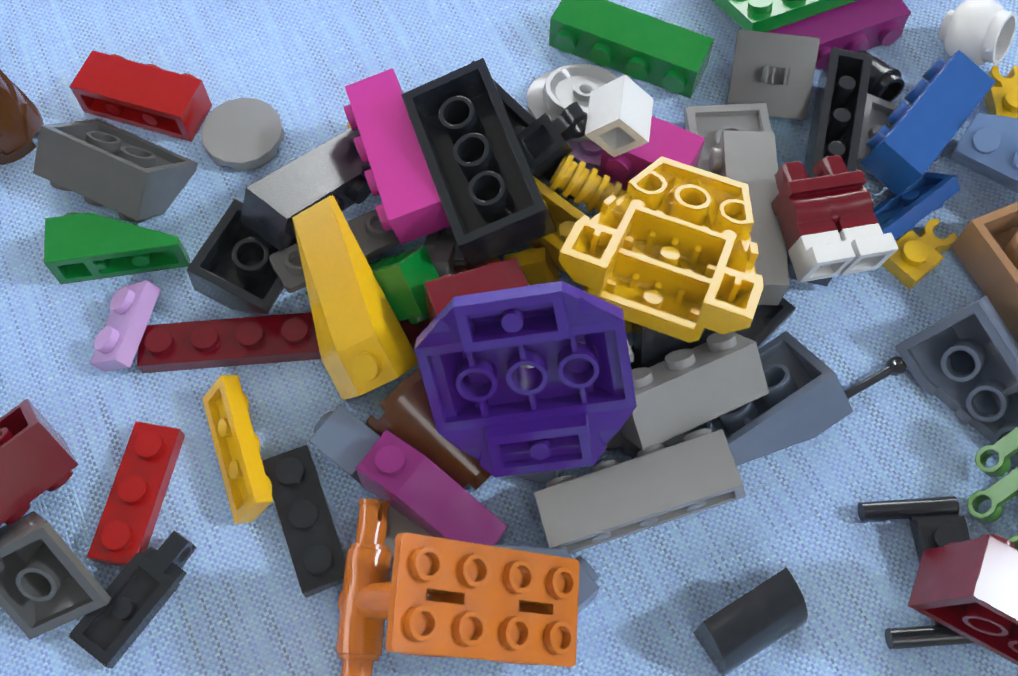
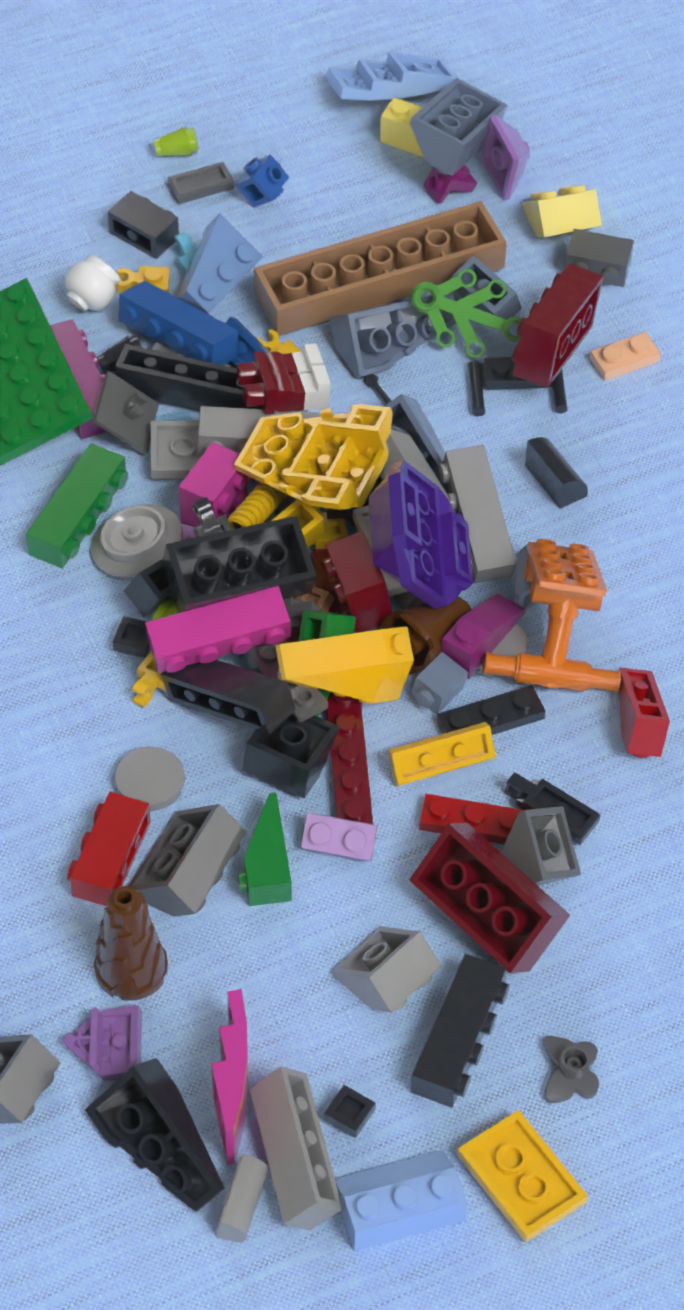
camera: 90 degrees left, 10 degrees down
(619, 116) = (206, 478): white brick -> none

